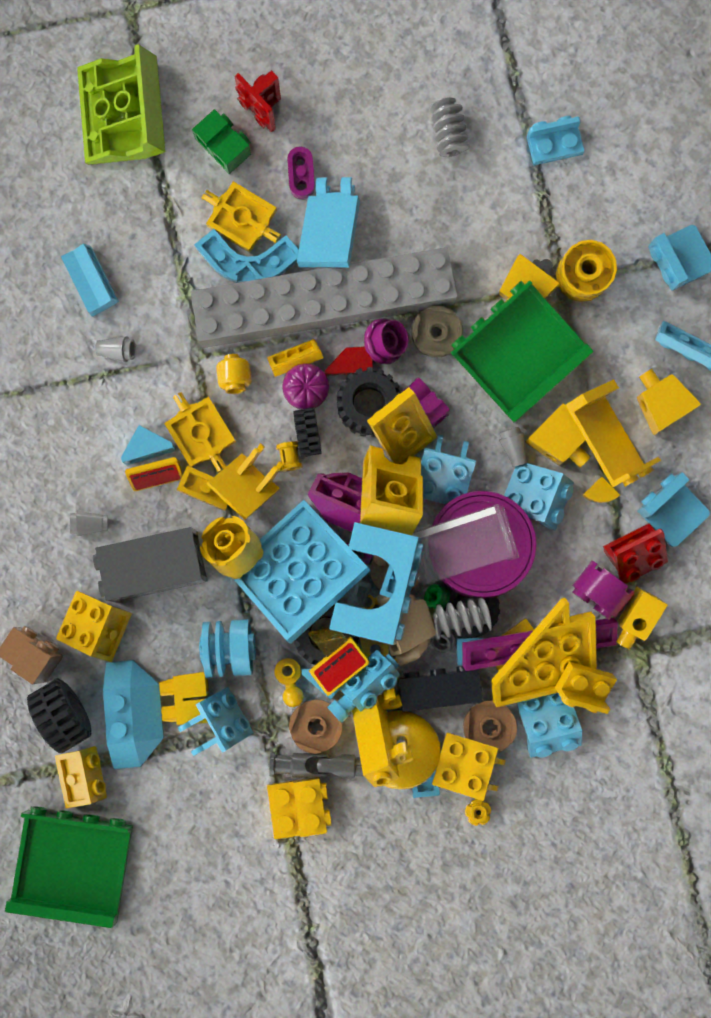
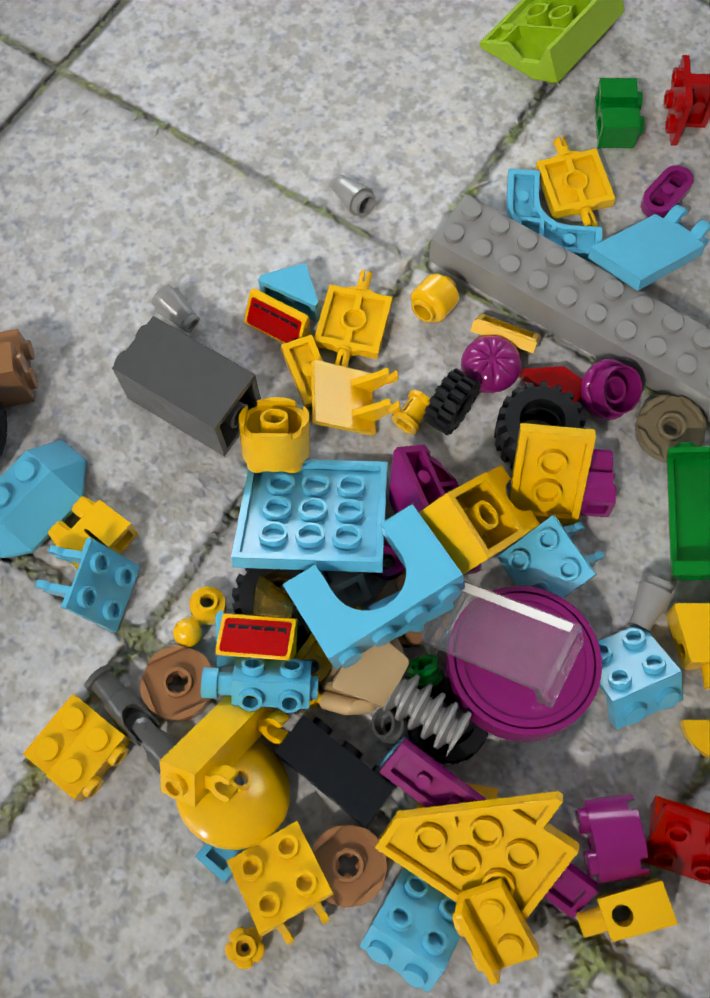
camera: 50 degrees right, 15 degrees down
(89, 279) = (388, 127): medium azure piece -> none
(93, 626) = (84, 399): yellow bracket -> none
(223, 648) = (173, 522): medium azure wheel -> none

